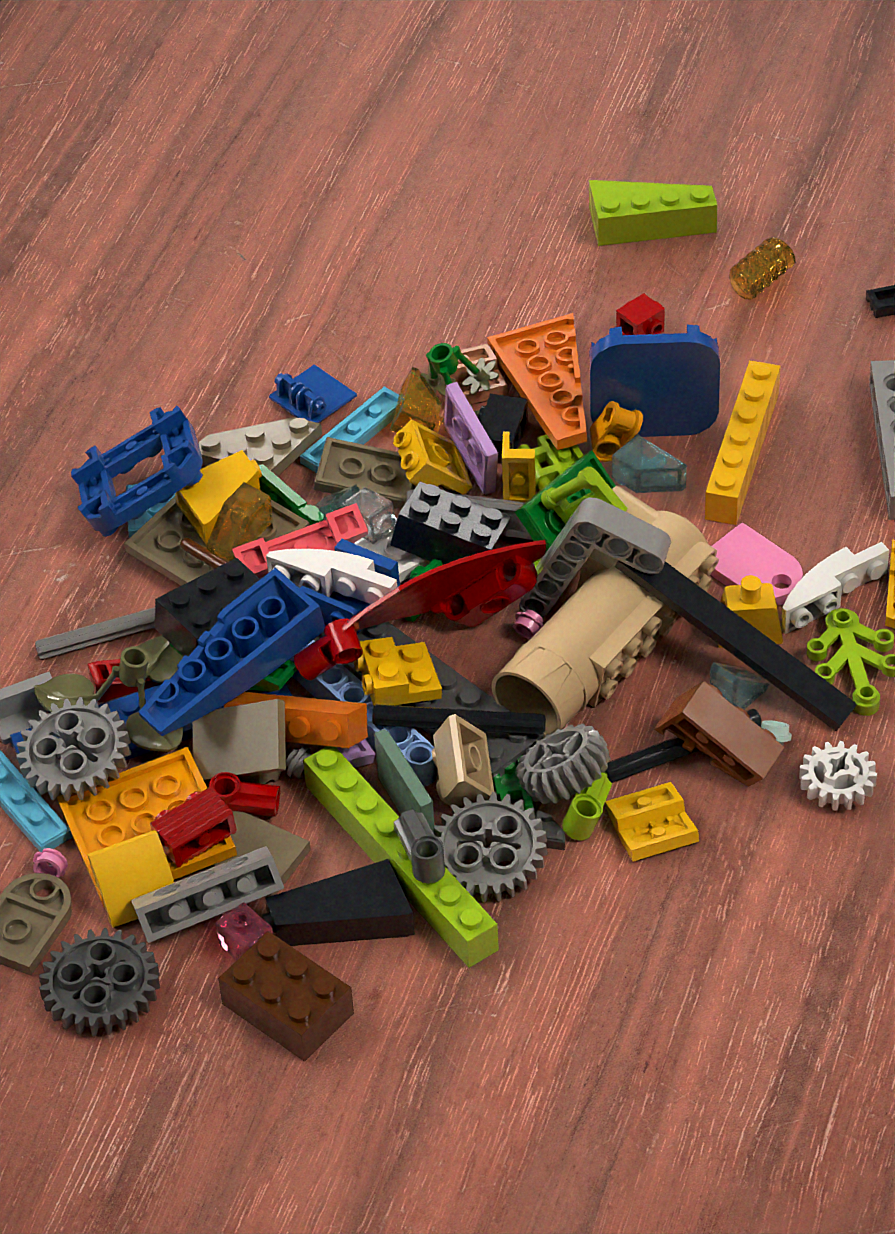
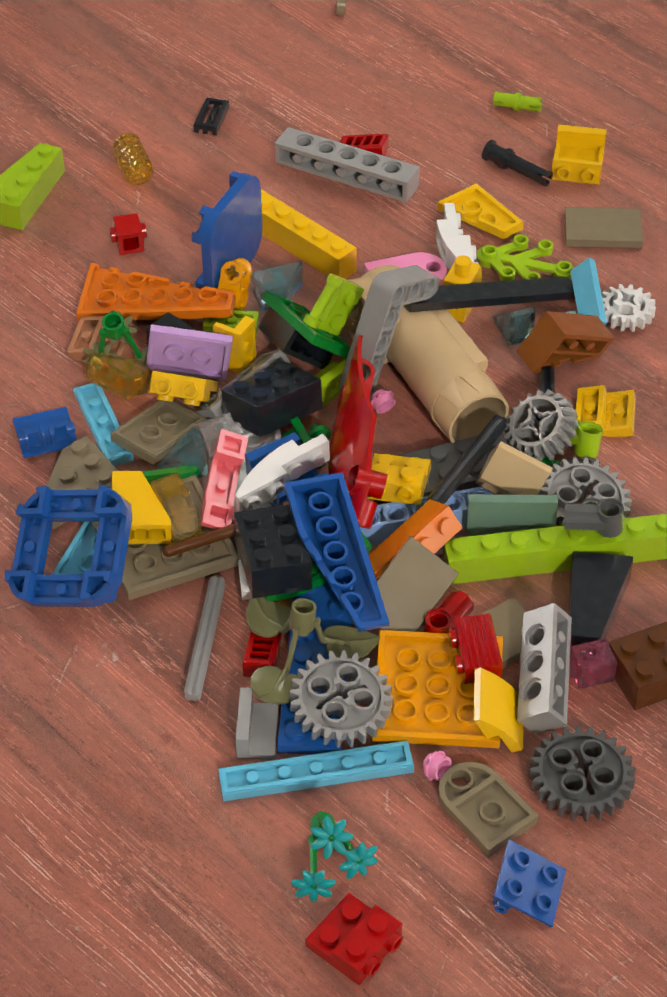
camera: 65 degrees left, 0 degrees up
(823, 730) = (588, 290): none -> medium azure tile

